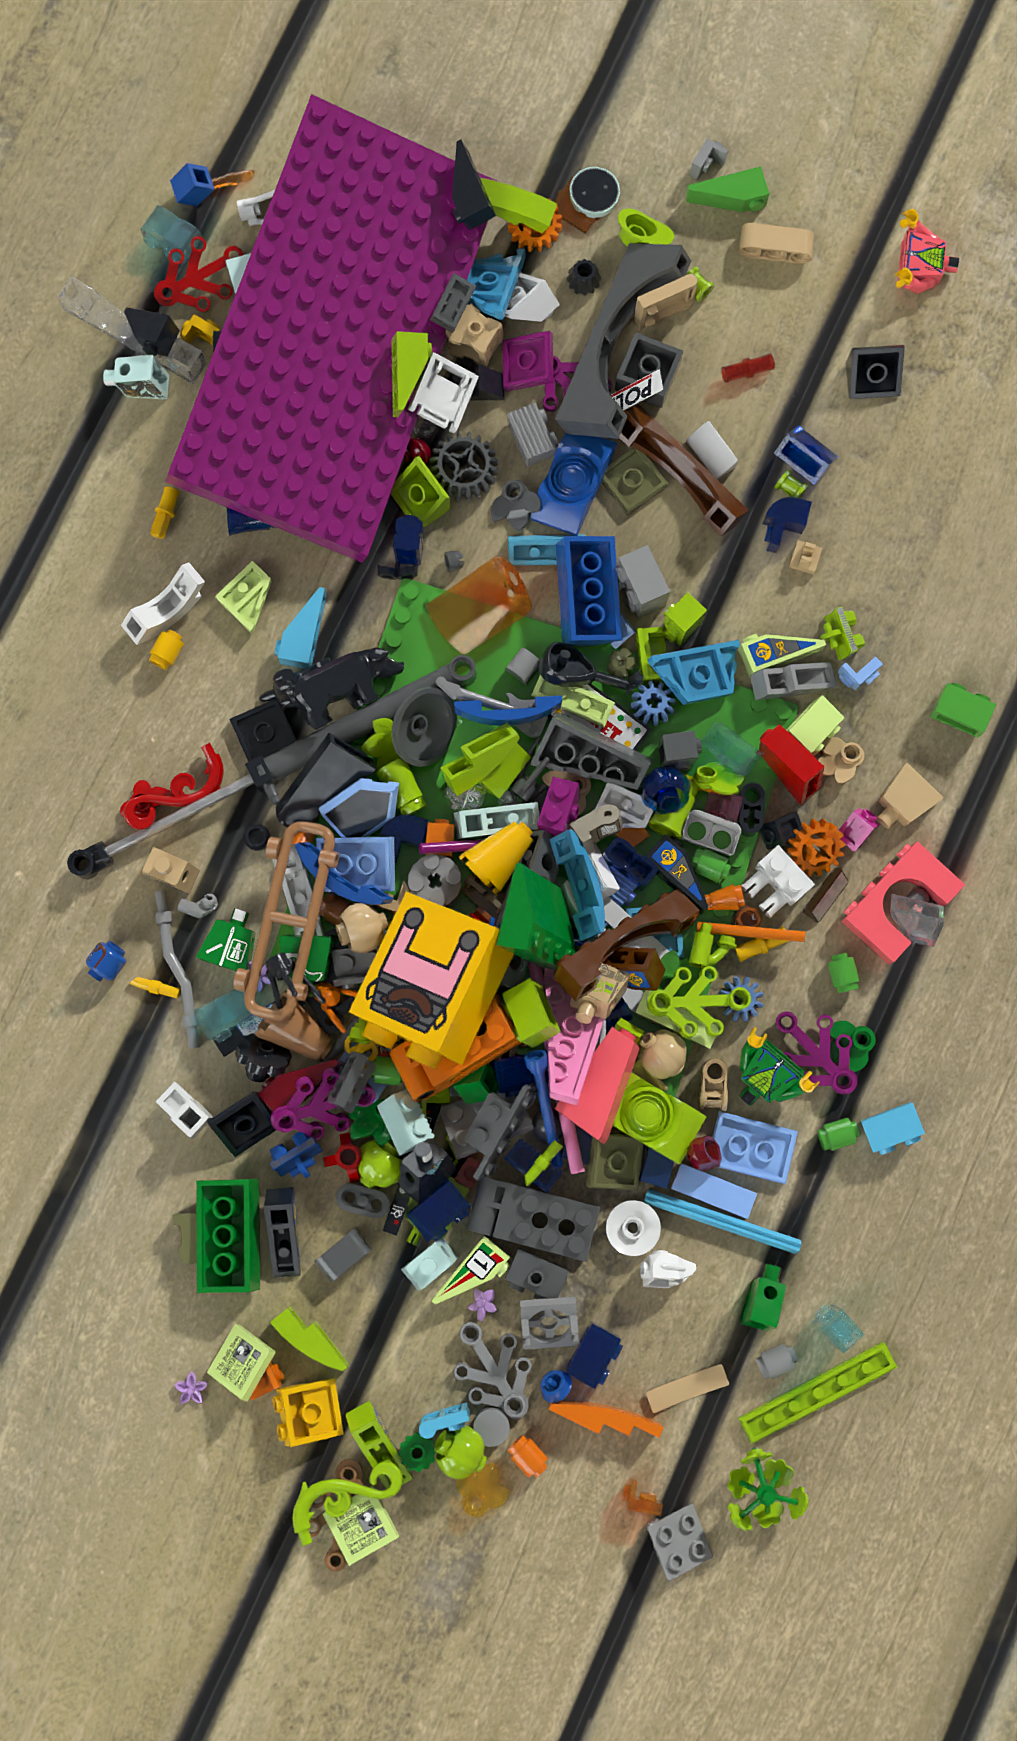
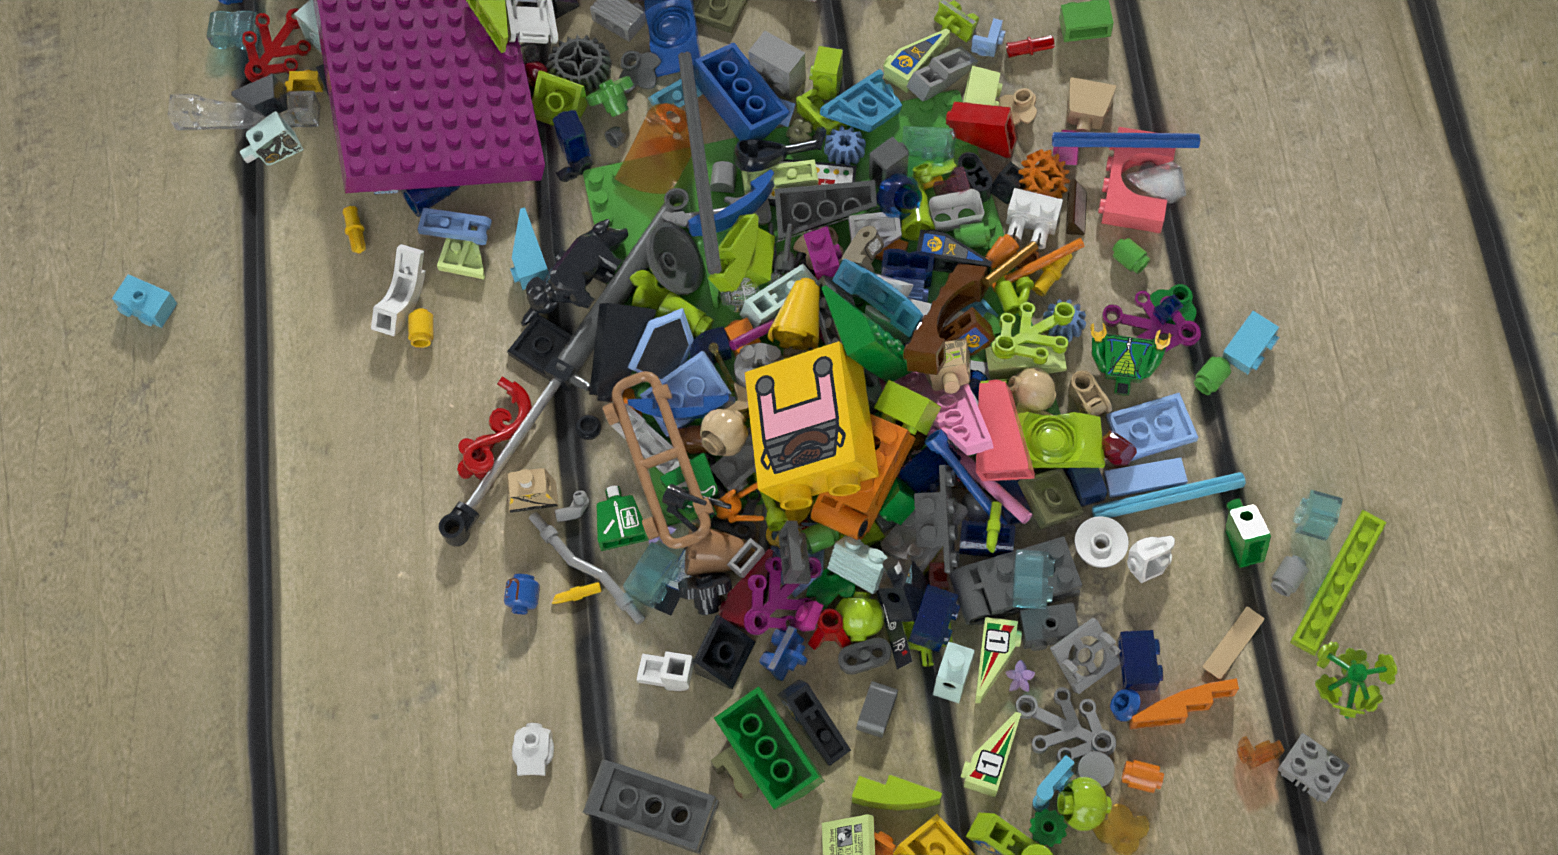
camera: 25 degrees left, 15 degrees down
(33, 1108) = (532, 749): none -> white hand
(84, 1199) = (626, 798): none -> dark grey hinge
(250, 567) = (454, 225): none -> medium blue plate
(310, 1061) = (750, 563): none -> light grey piece
(334, 1138) = (807, 616): none -> dark pink plate
(405, 837) = (713, 348): none -> clear yellow hinge
(407, 1362) = (990, 759): none -> slope
(472, 518) = (611, 95): none -> bright green plant
(501, 648) = (699, 164): none -> dark grey axle
(541, 1234) = (1031, 579): none -> clear light blue brick
(724, 918) = (1010, 264): none -> pearl gold bar
(839, 1050) = (1167, 309): none -> clear blue piece
(894, 702) = (1029, 46): none -> red axle
(913, 861) = (1126, 140): none -> blue axle

